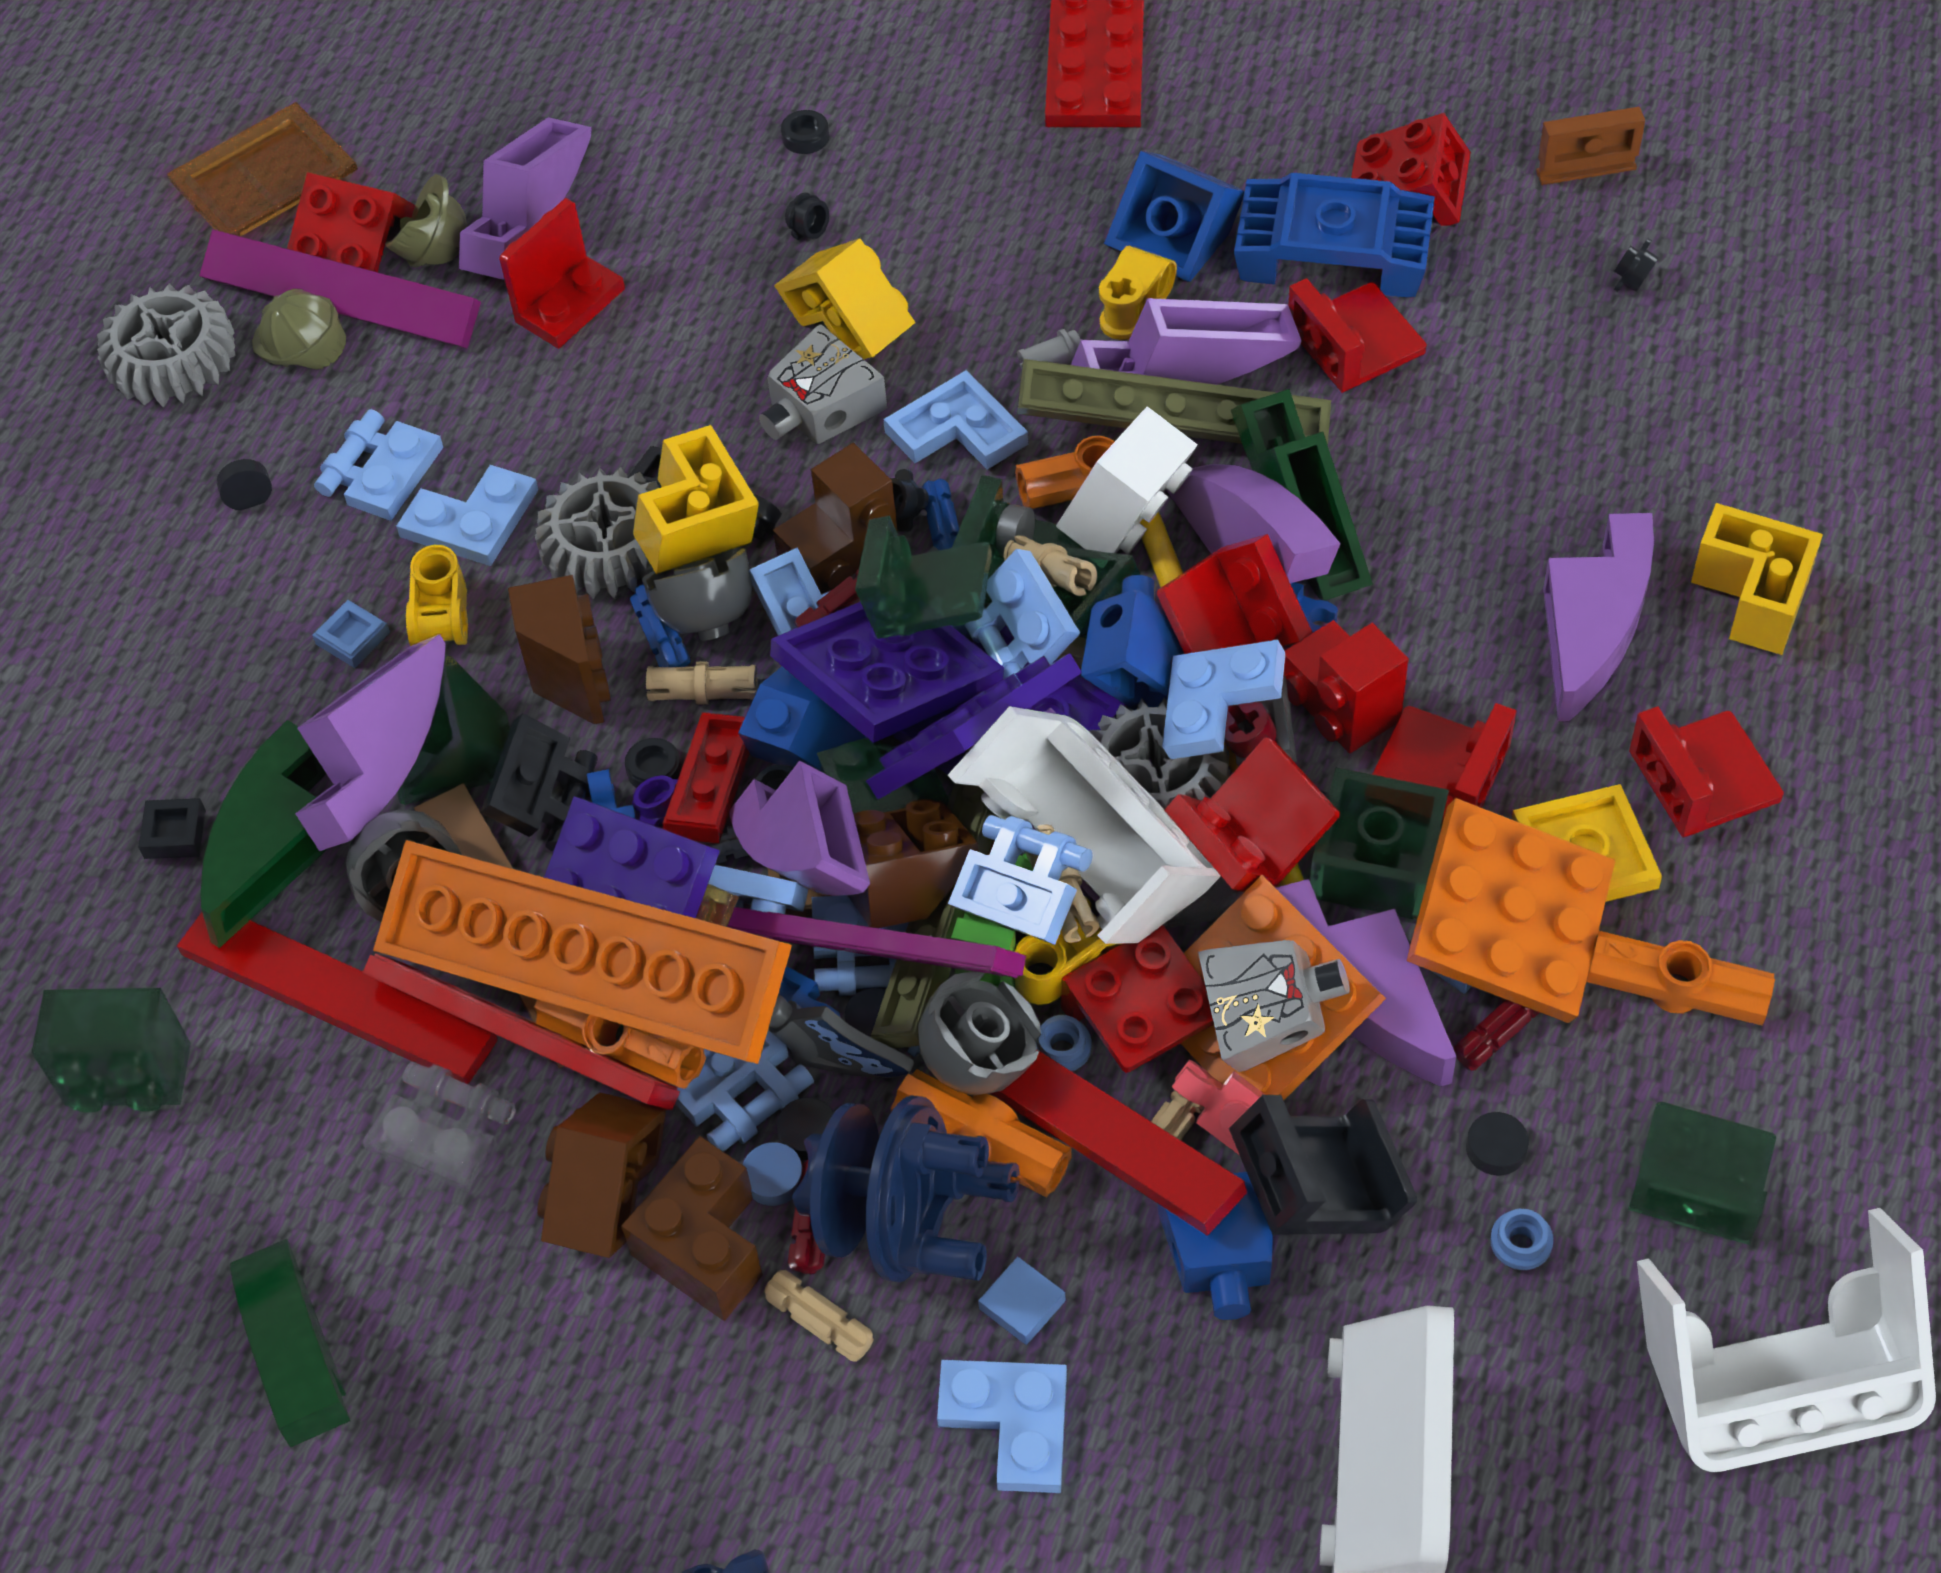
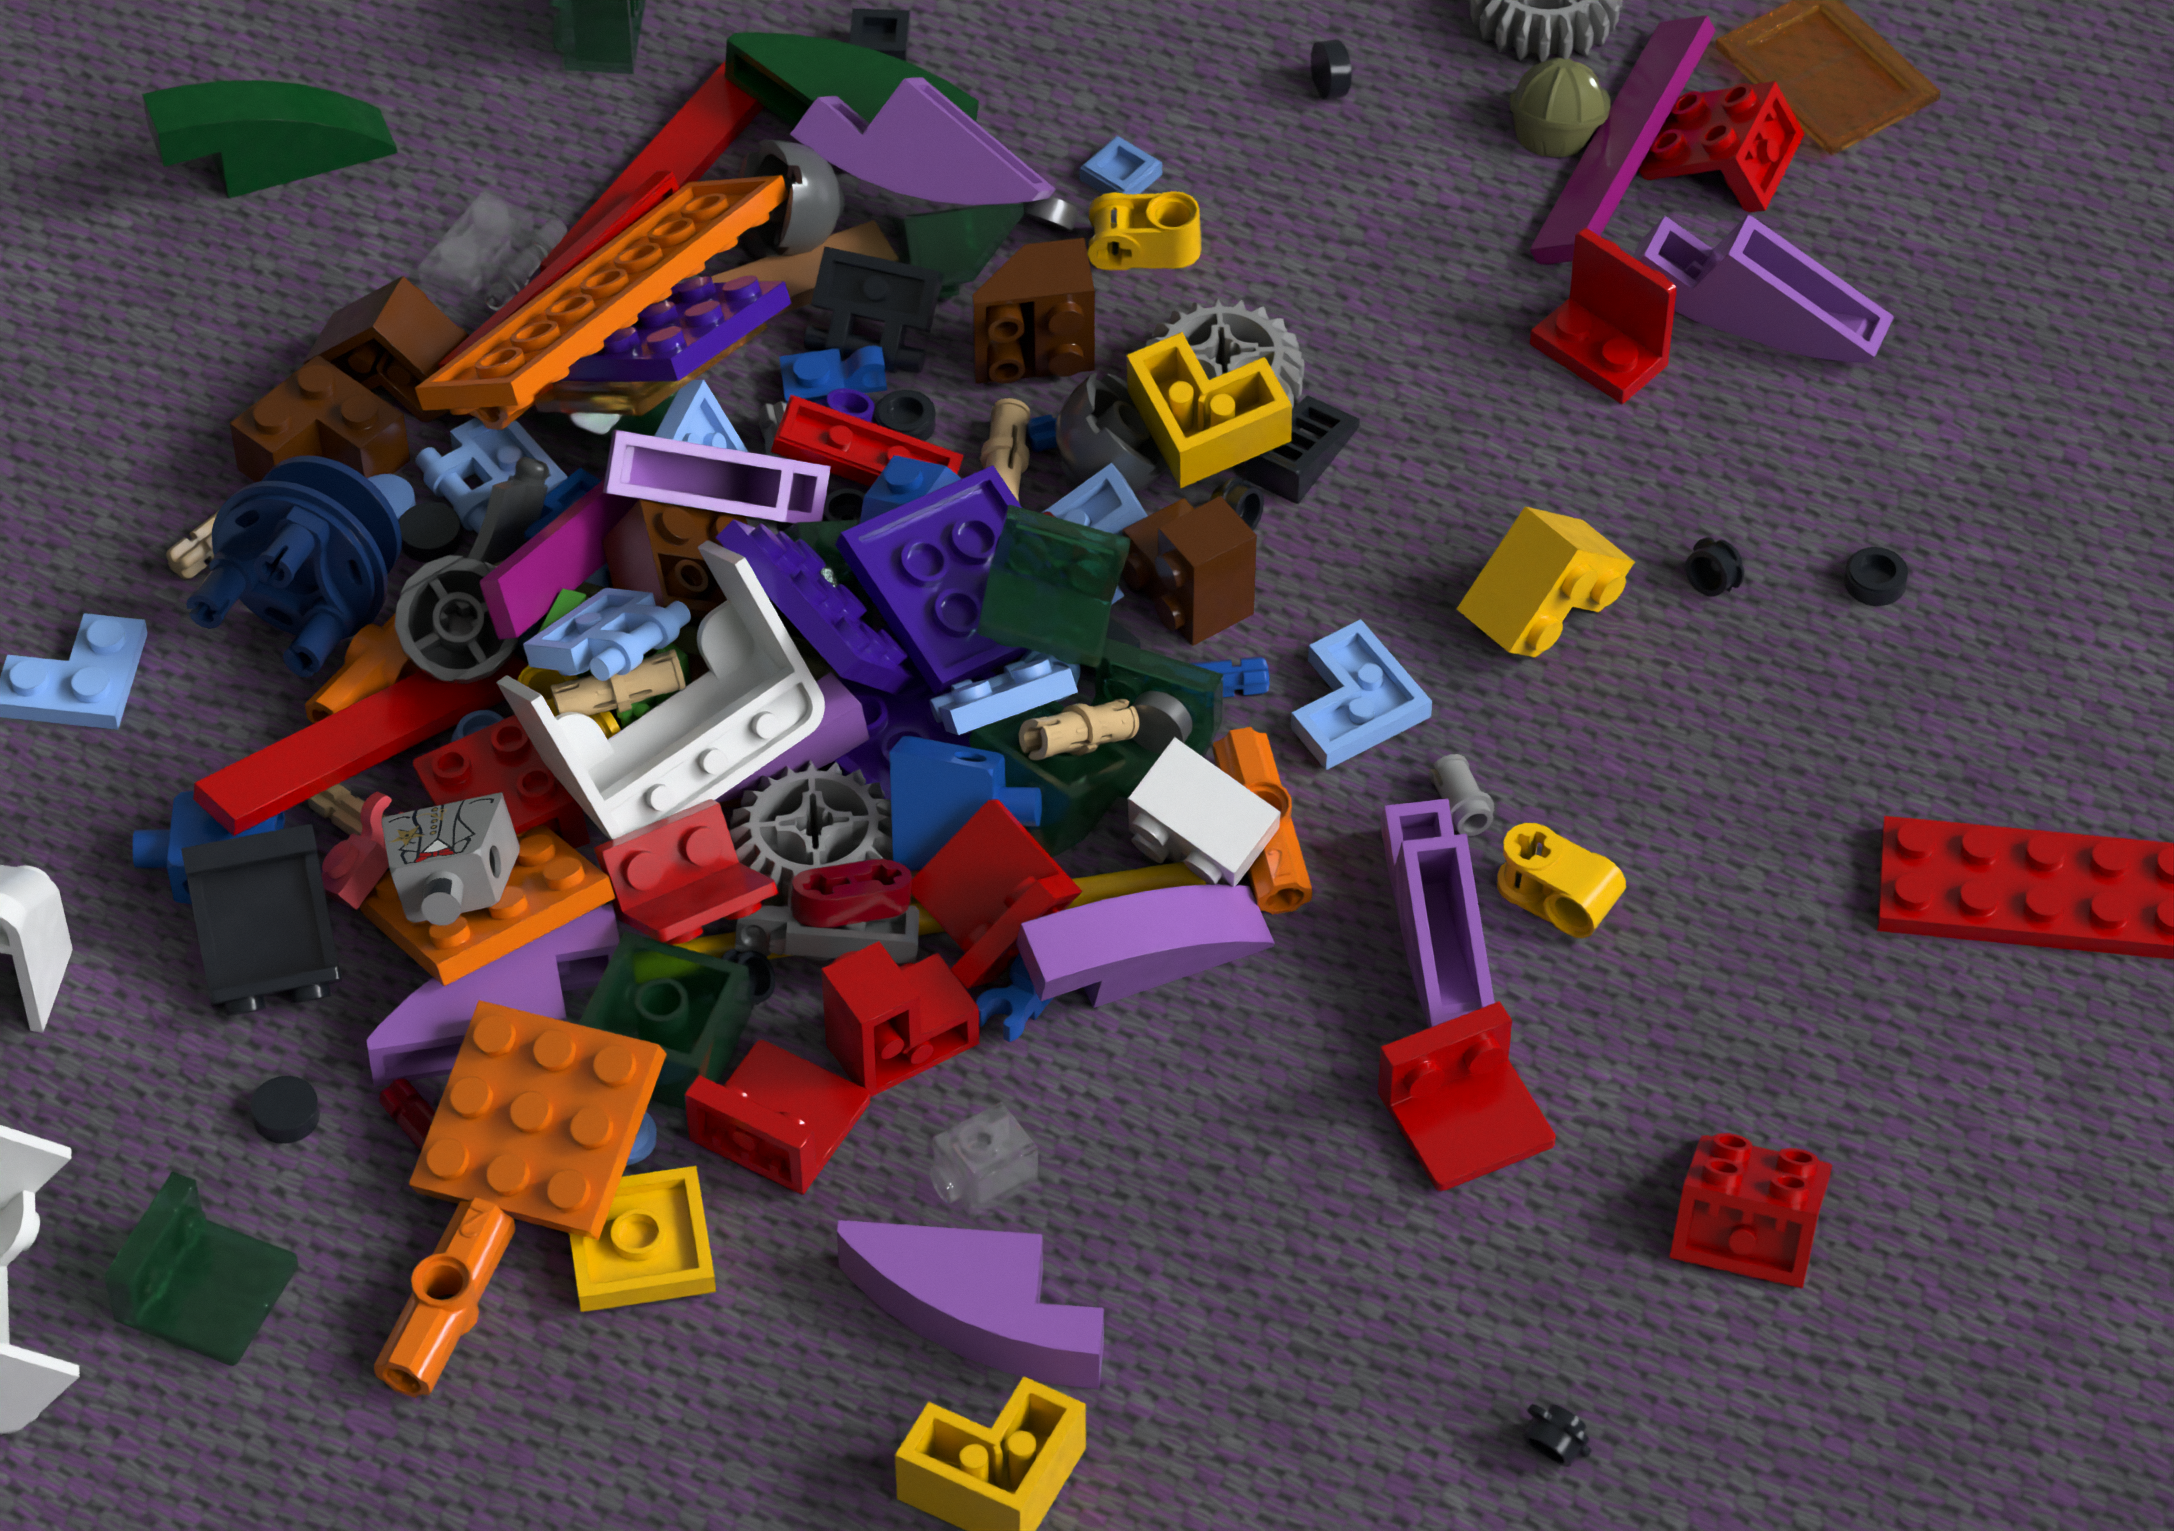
camera: 90 degrees right, 5 degrees down
(391, 471) = (1354, 199): light blue plate -> none
(433, 229) = (1702, 209): olive piece -> none
(473, 527) = (1262, 266): light blue plate -> none
(822, 389) = (1416, 564): light grey torso -> none
(908, 499) = (1241, 636): black plate -> none
(1021, 1300) = (198, 692): medium blue tile -> none
(1120, 397) = (1339, 895): olive tile -> none
(1174, 213) = (1691, 934): blue slope -> none
(1210, 682) = (877, 861): light blue plate -> none
(1306, 469) = (1190, 1006): dark green slope -> none
(1337, 225) = (1632, 1097): blue plate -> none
(1466, 618) = (984, 1161): none -> clear brick
(1528, 1224) = (161, 1097): medium blue plate -> none
(1590, 145) = (1777, 1415): dark orange plate -> none
(1702, 769) = (725, 1364): red bracket -> none

